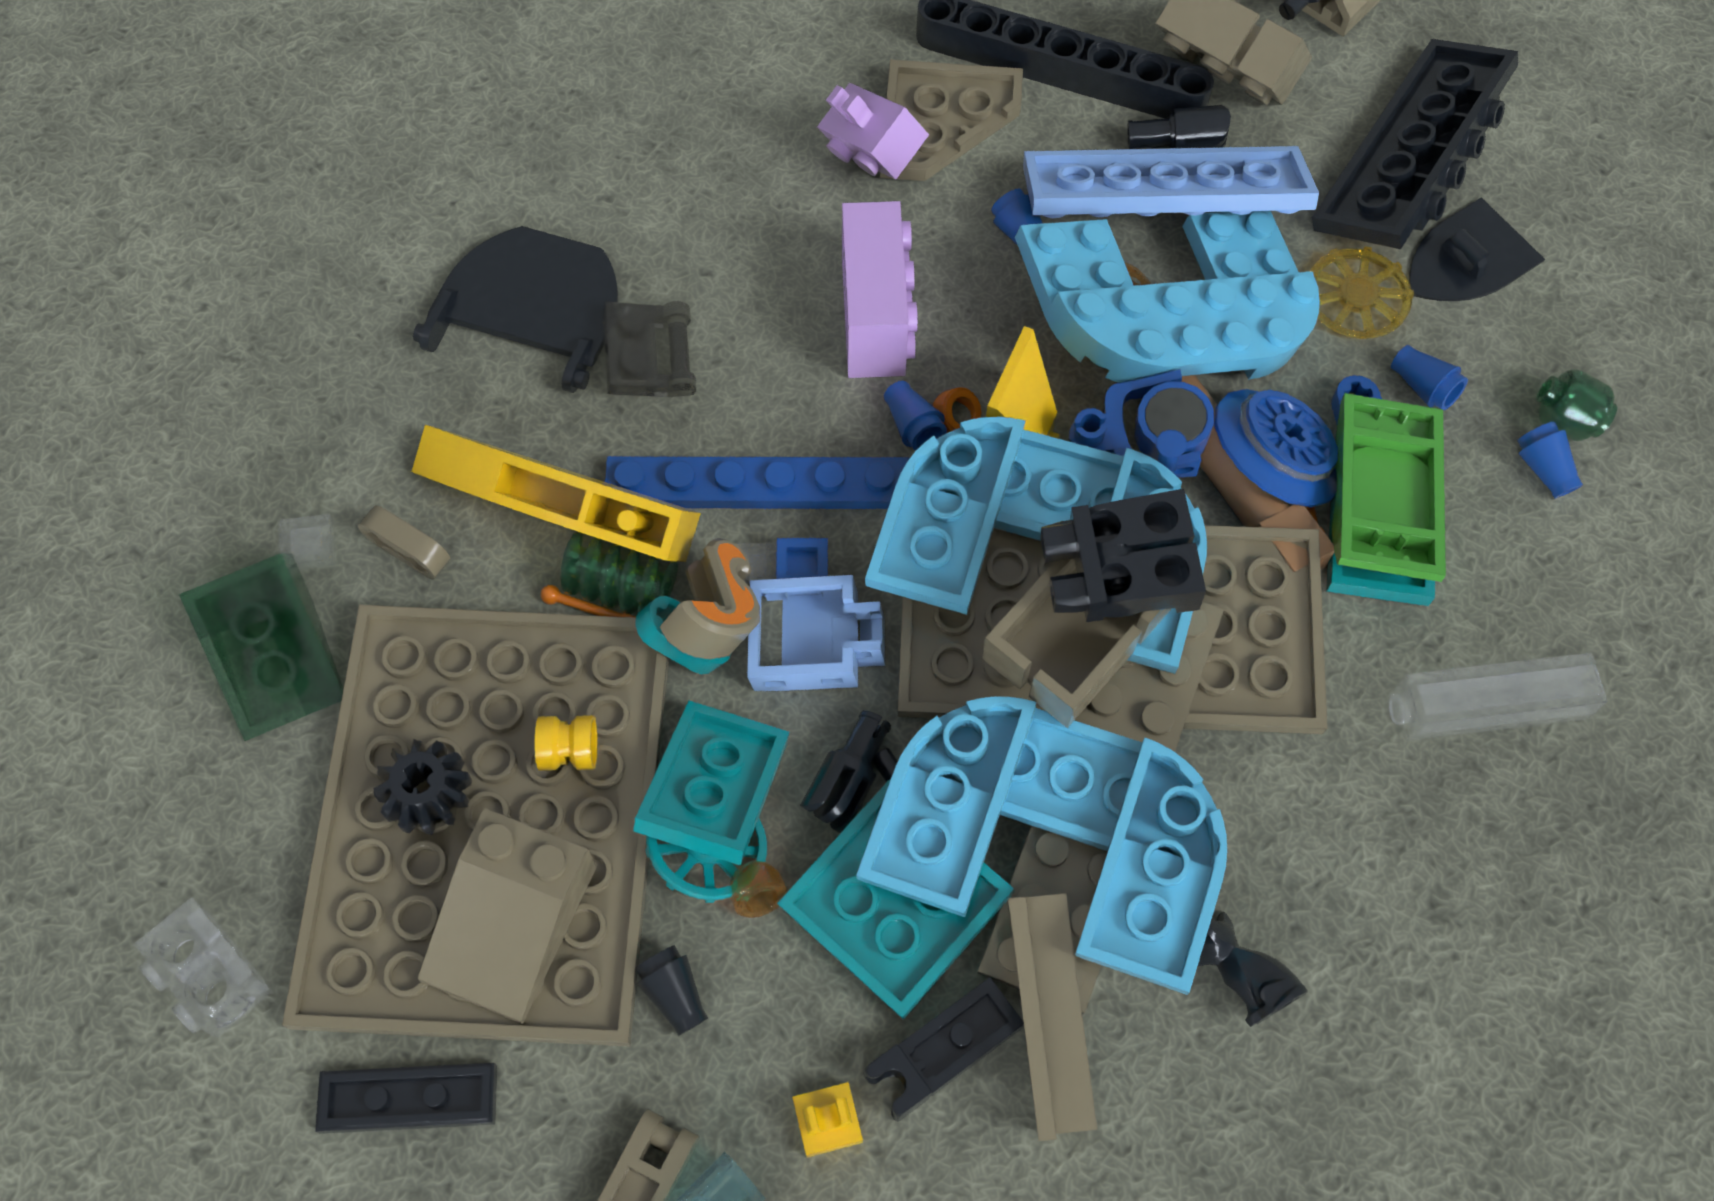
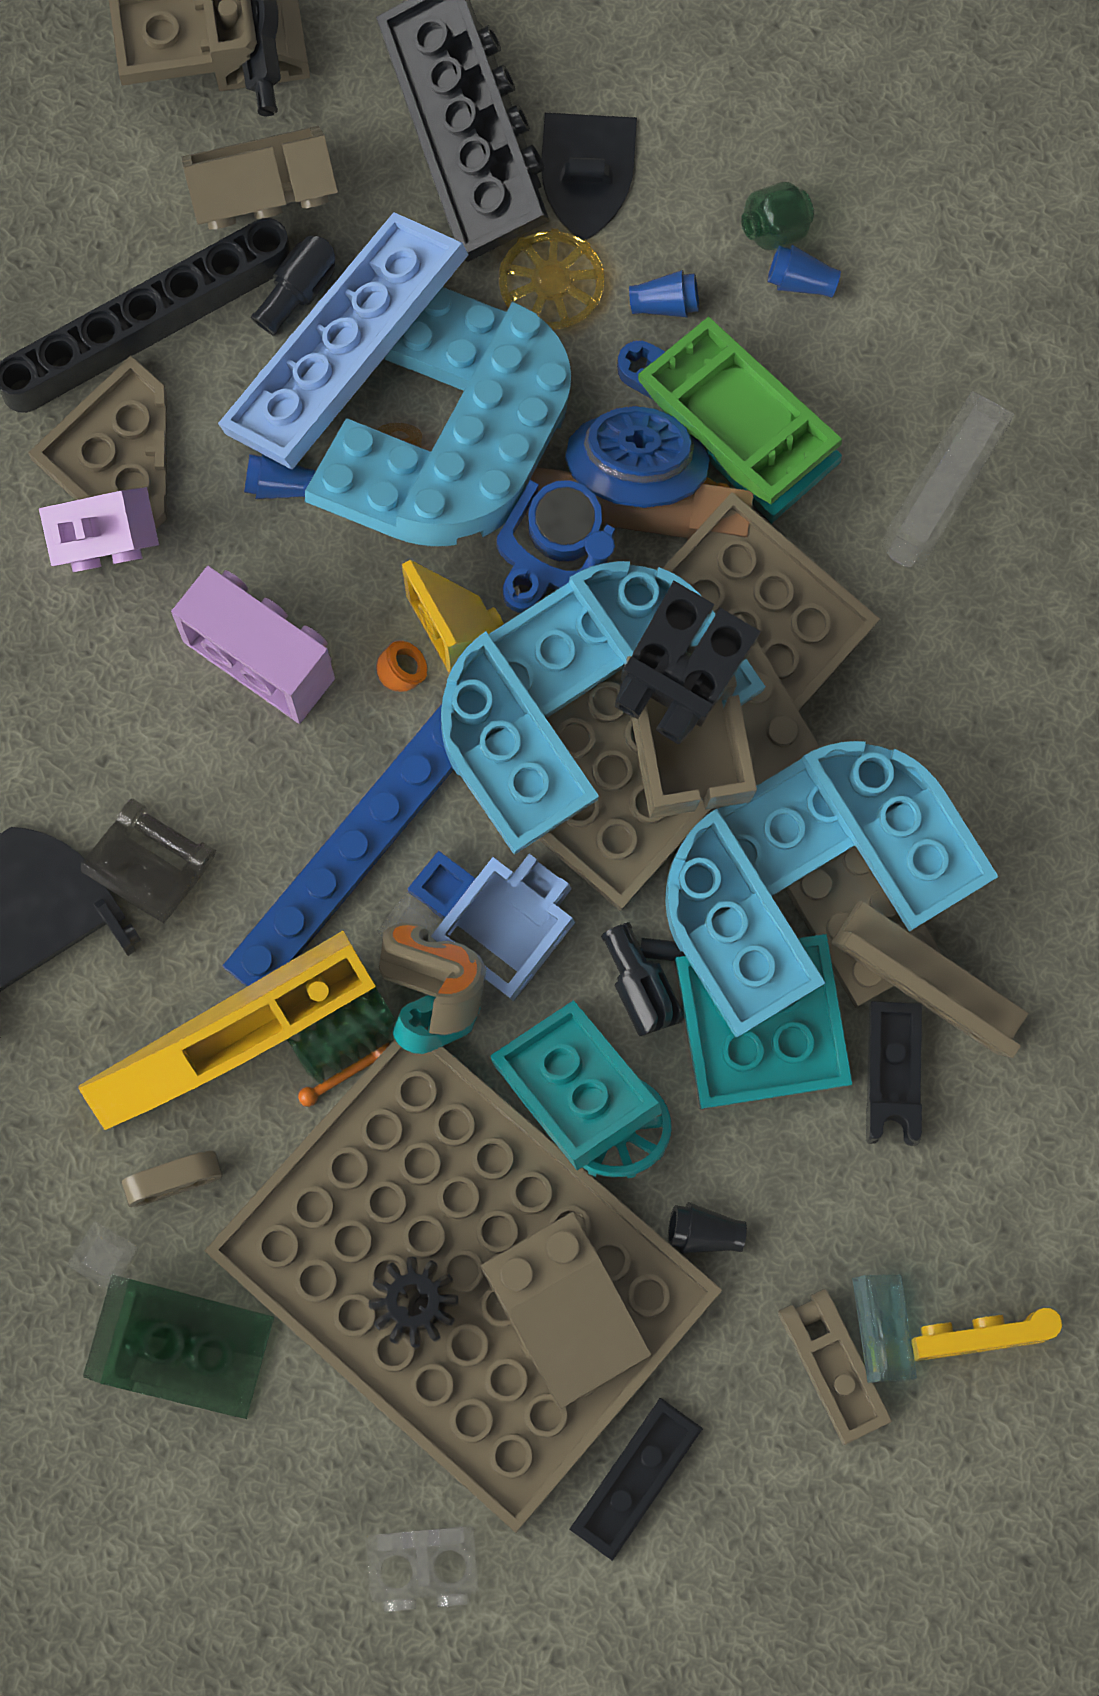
camera: 50 degrees left, 10 degrees up
(563, 742) = (460, 1173): yellow wheel -> none
(756, 889) = (678, 1115): clear orange piece -> none
(827, 1119) = (879, 1191): yellow tile -> none
(913, 415) = (384, 702): blue cone -> none
(1255, 976) = (1012, 820): black animal -> none

